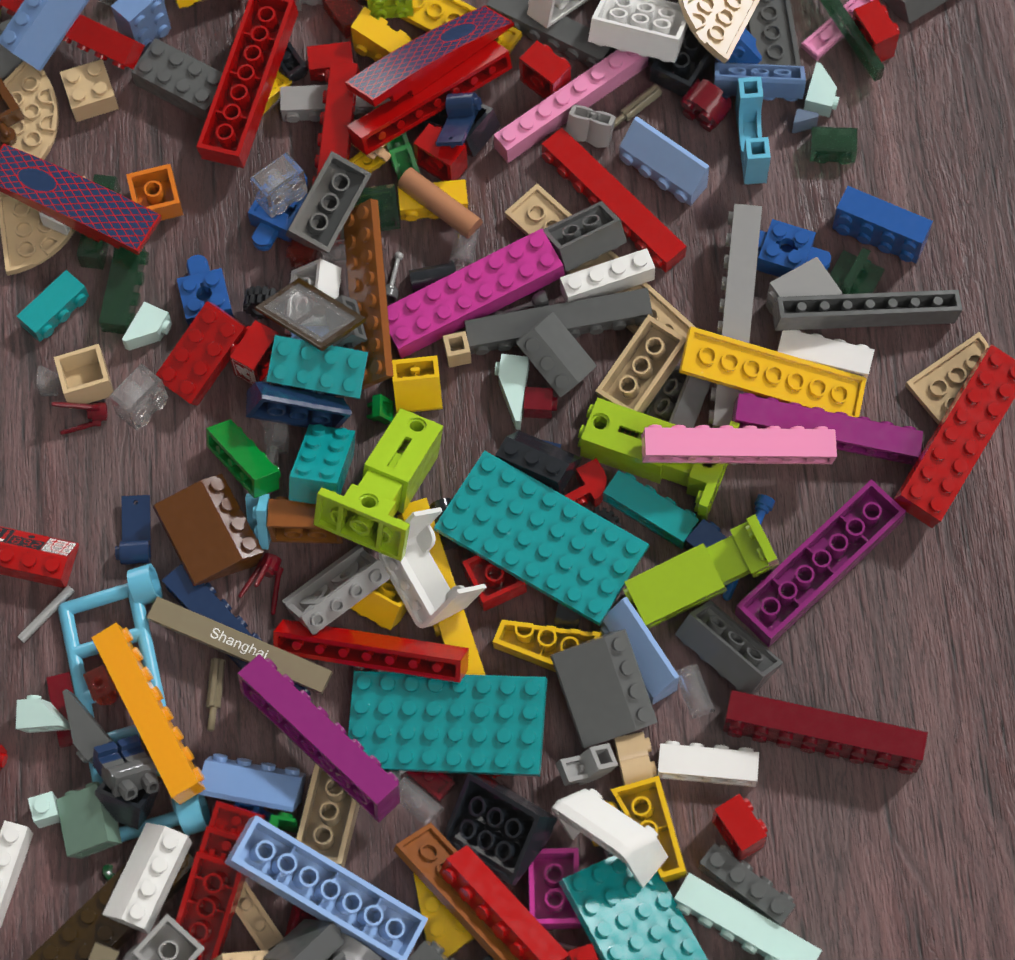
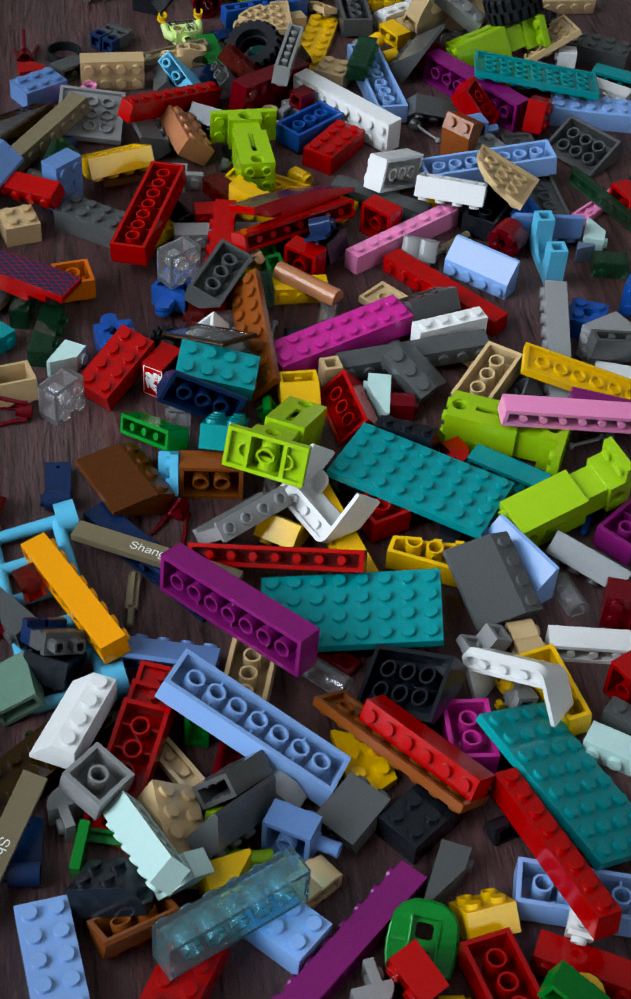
camera: 10 degrees left, 25 degrees down
(474, 407) = (346, 406): none -> red slope

